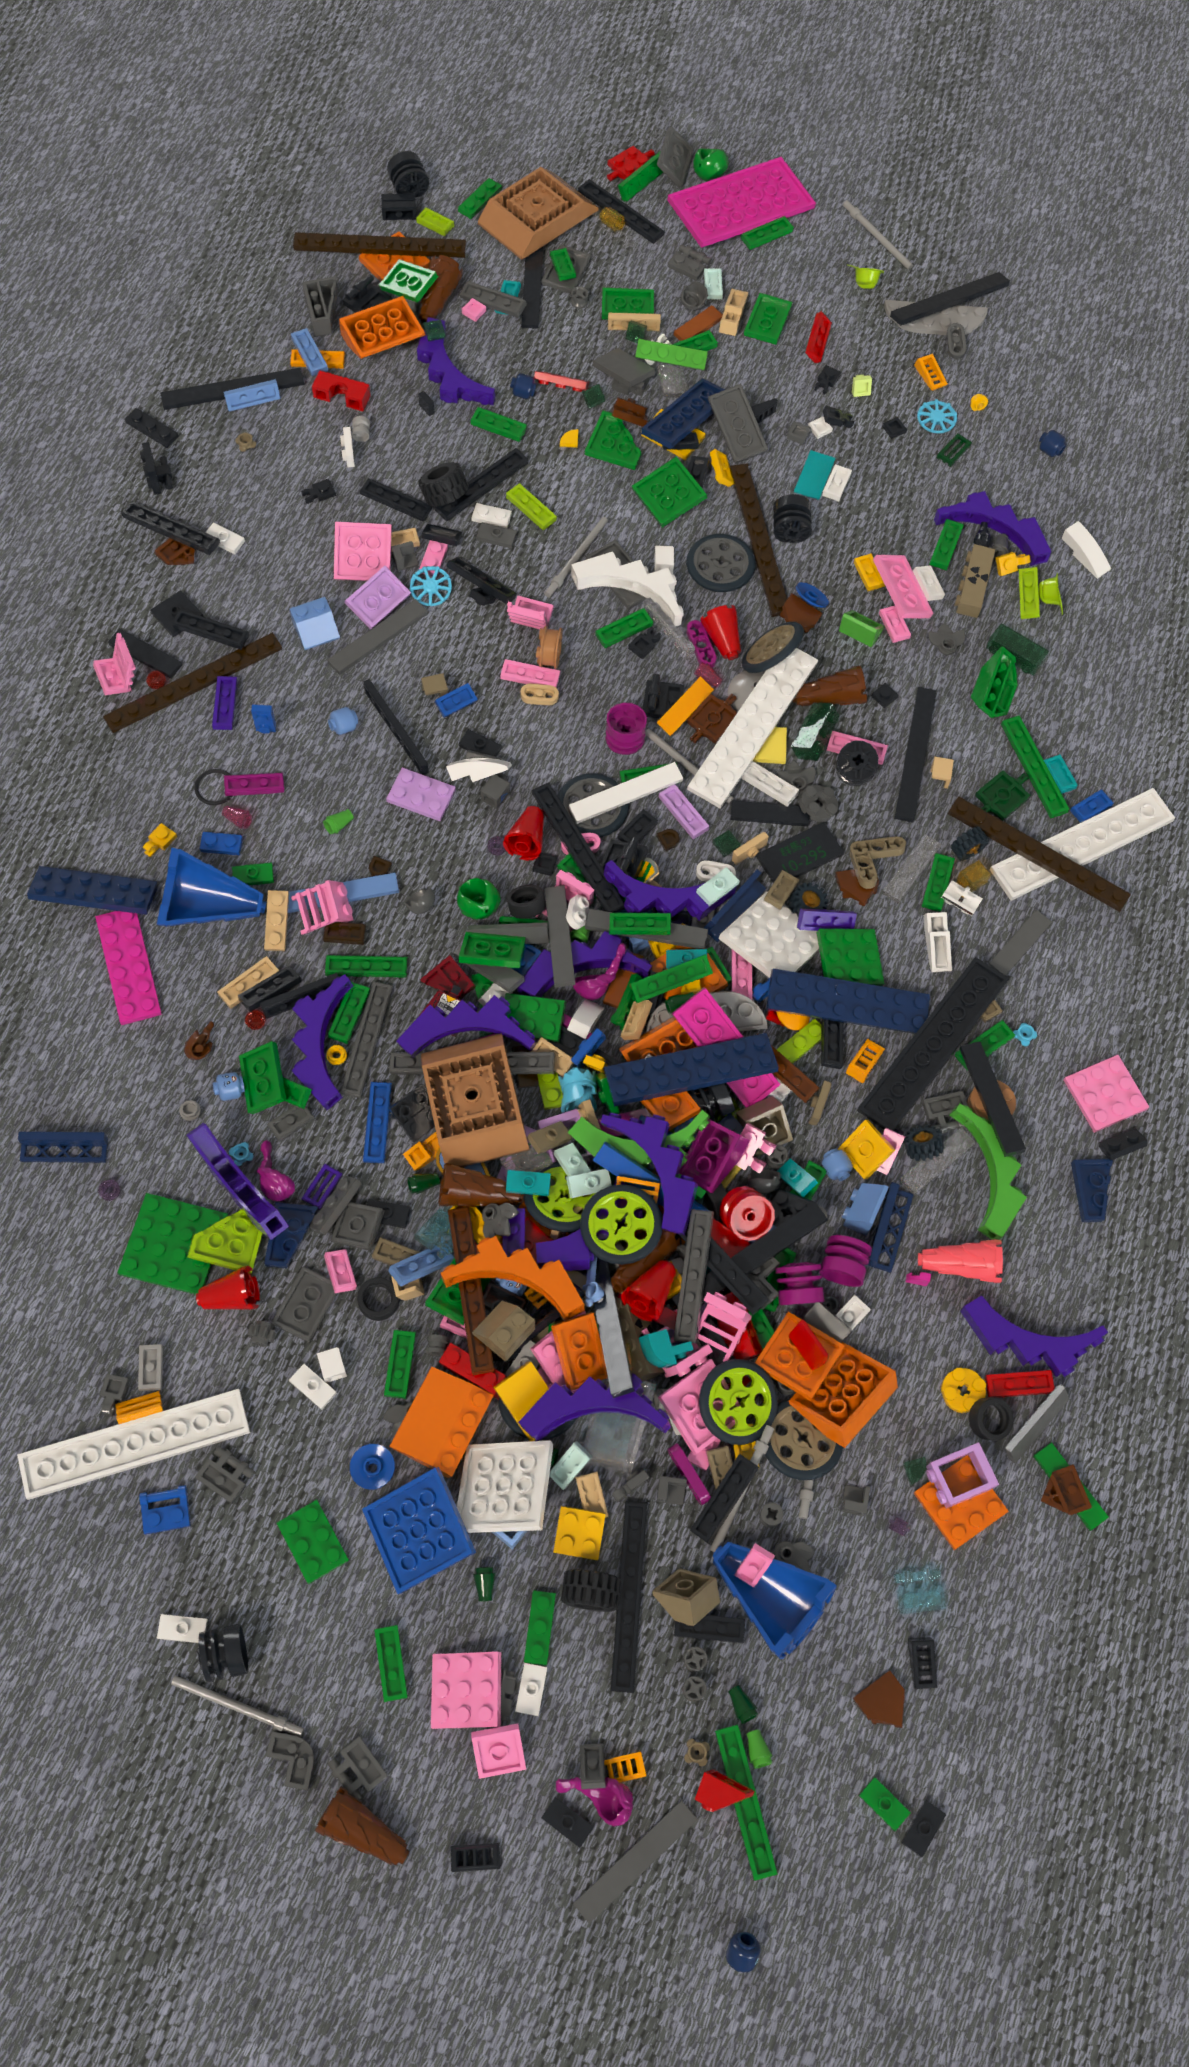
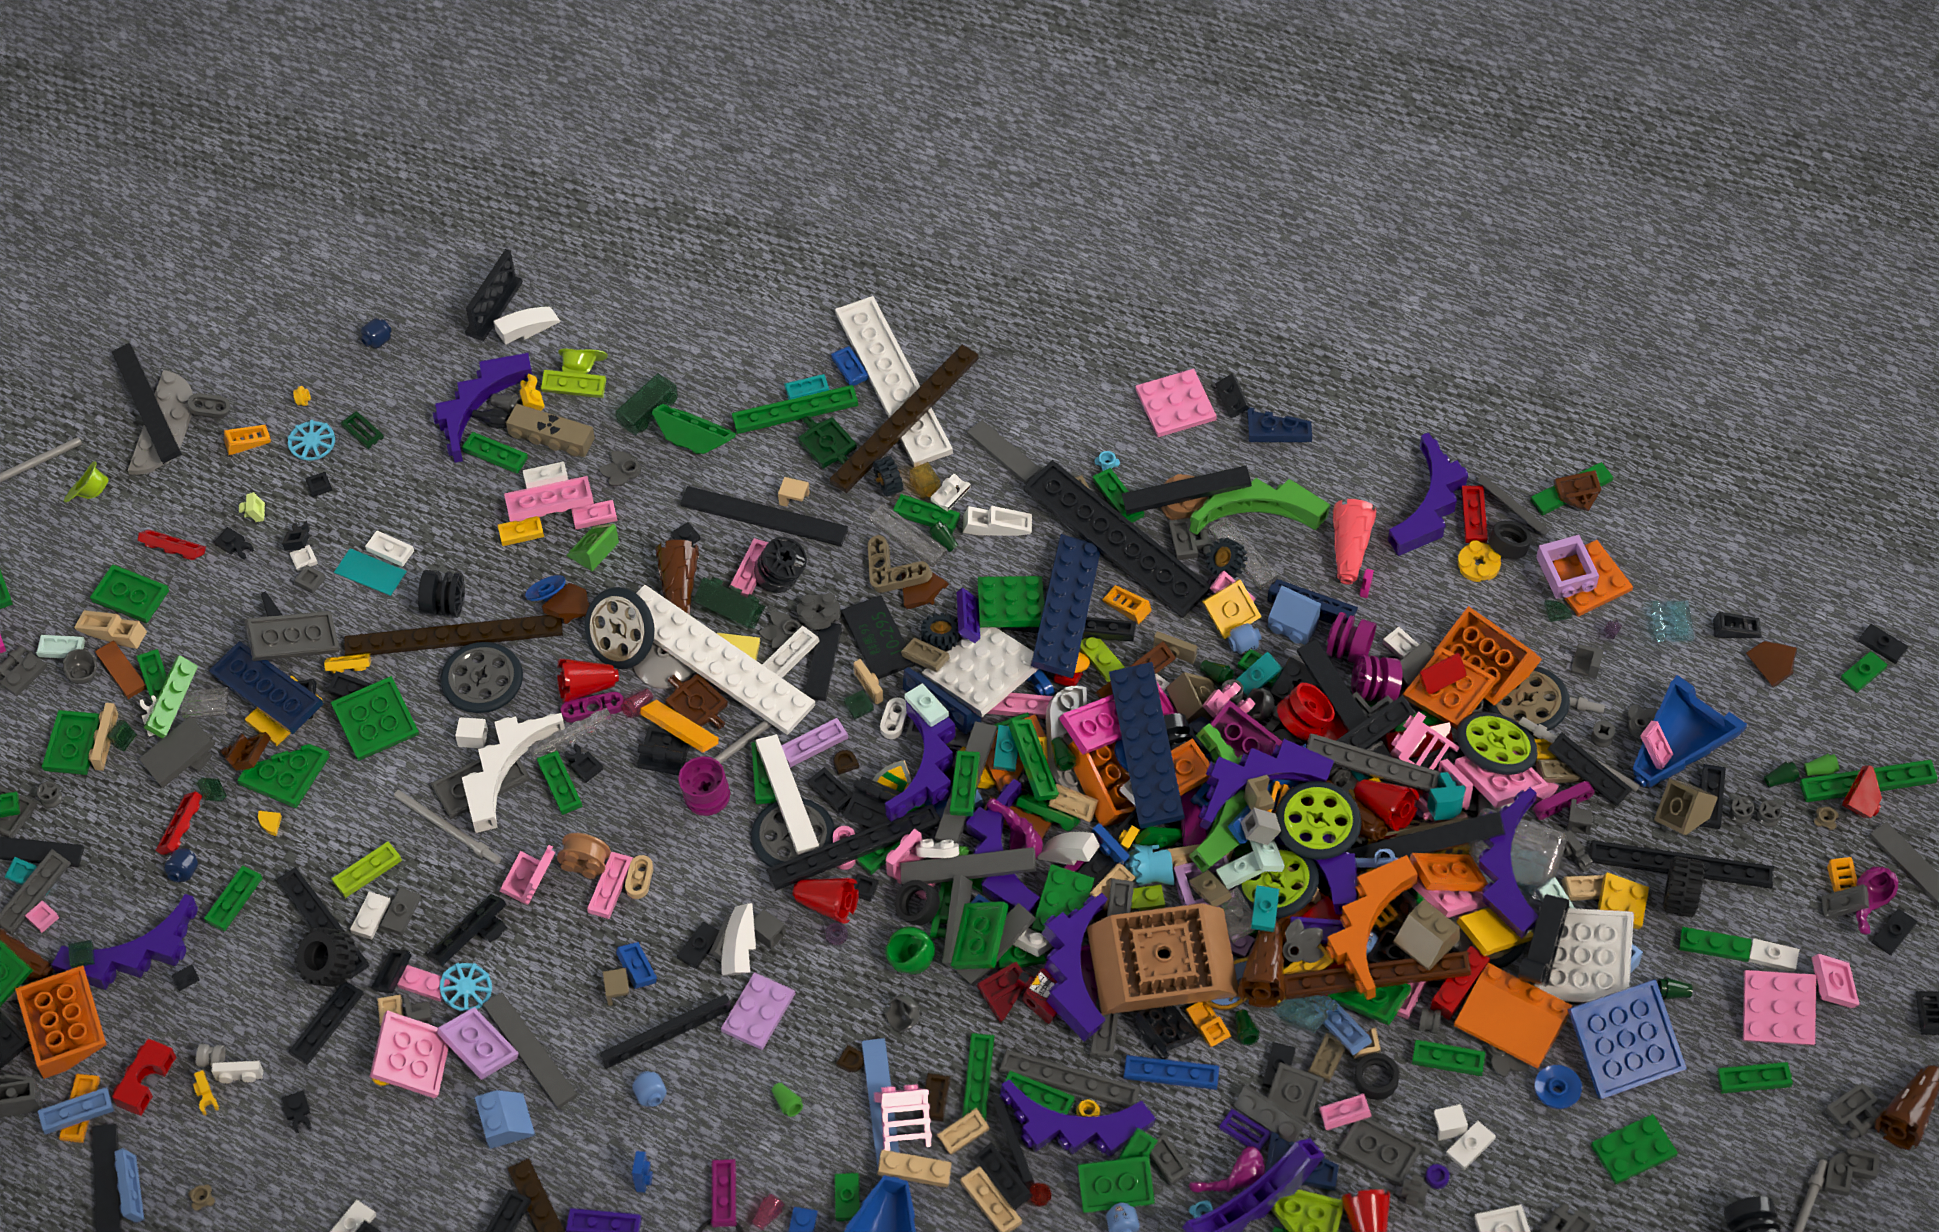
camera: 80 degrees left, 10 degrees down
(280, 1356) = (1437, 1176): none -> dark purple tile
(312, 956) = (963, 1131): none -> tan plate
(331, 430) = (202, 1088): none -> yellow plate
(508, 1445) = (1545, 941): none -> black beam
(605, 1170) = (1260, 826): none -> light grey brick
(636, 1165) = (1257, 795): none -> dark tan panel
(797, 1143) = (1216, 671): none -> dark green cone
(913, 896) = (943, 536): none -> dark green cone
(1104, 525) = (492, 297): none -> black fence

